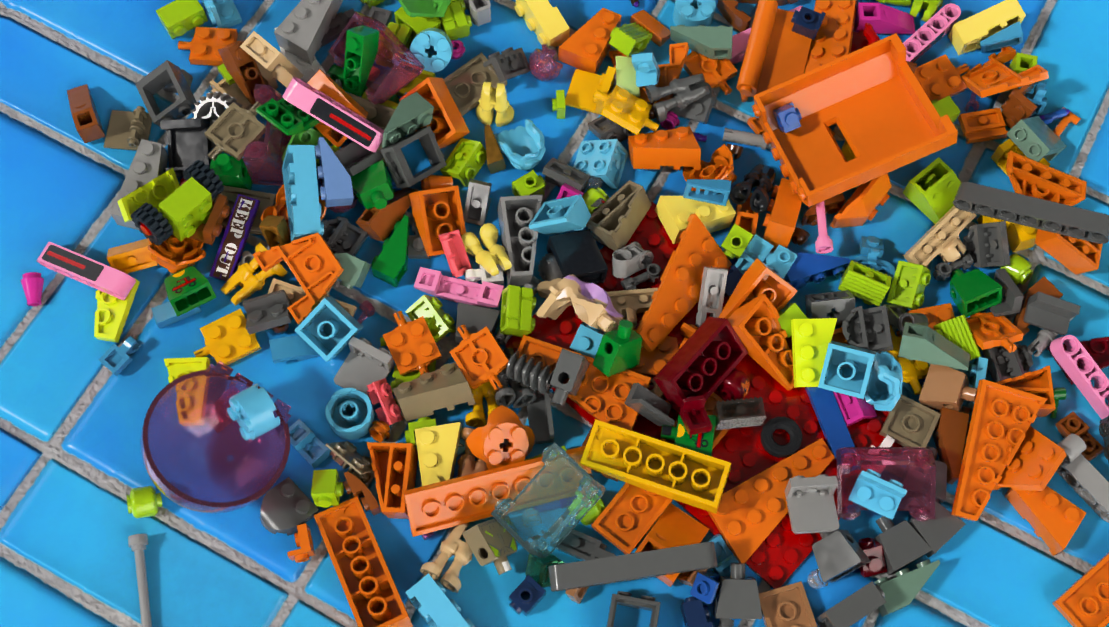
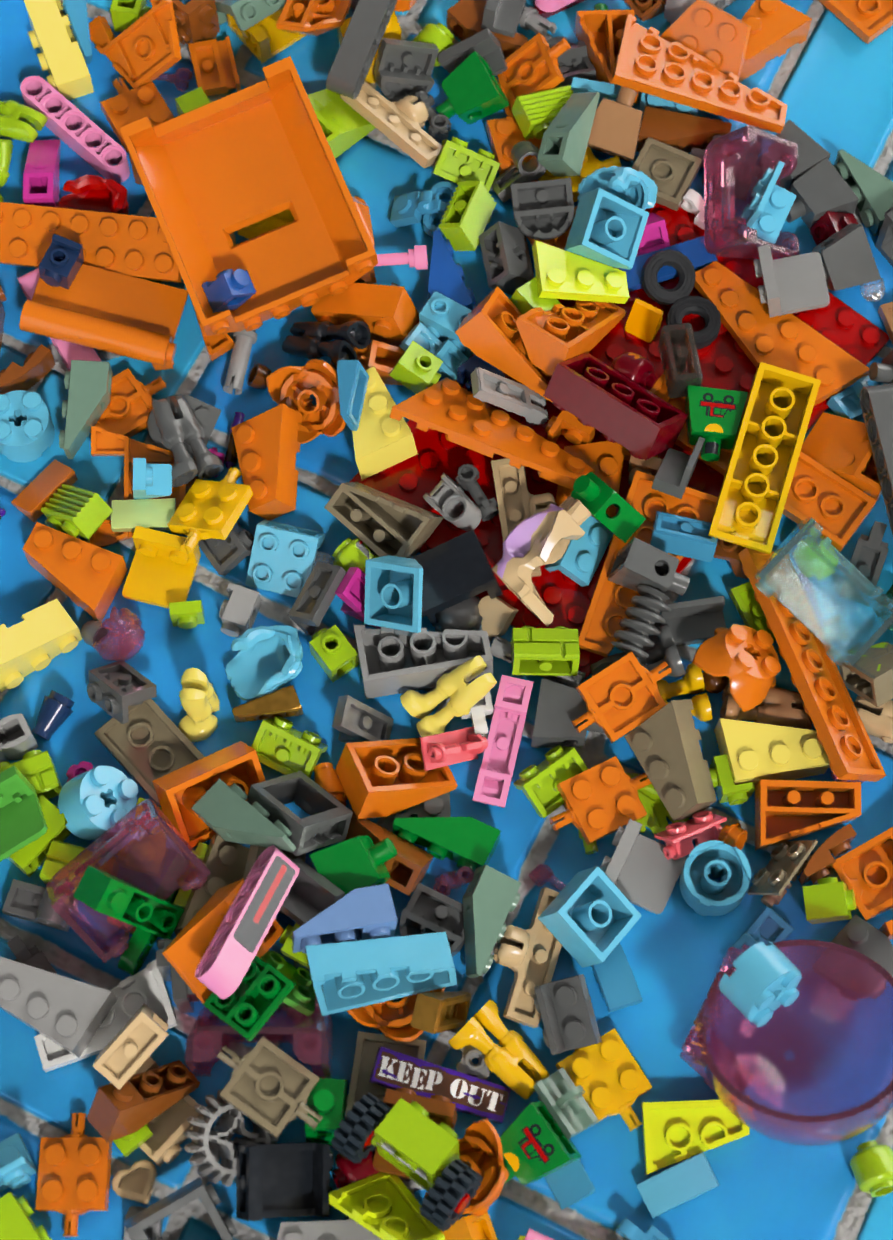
camera: 90 degrees left, 0 degrees up
(152, 375) = (677, 1185): none -> medium azure slope
(202, 77) = (137, 1182): none -> tan tile
(212, 309) = (565, 1103): none -> sand green hips
(312, 266) = (495, 945): orange wing -> none
(367, 252) = (453, 879): none -> clear pink arm
(498, 32) = (52, 715): none -> dark blue cone
(560, 134) = (240, 610): none -> light grey brick
(599, 405) = (683, 536): none -> dark azure slope
(694, 415) = (699, 405): dark red bracket -> none
(780, 400) = (644, 320): none -> light orange slope
(824, 430) = (650, 271): none -> black tyre

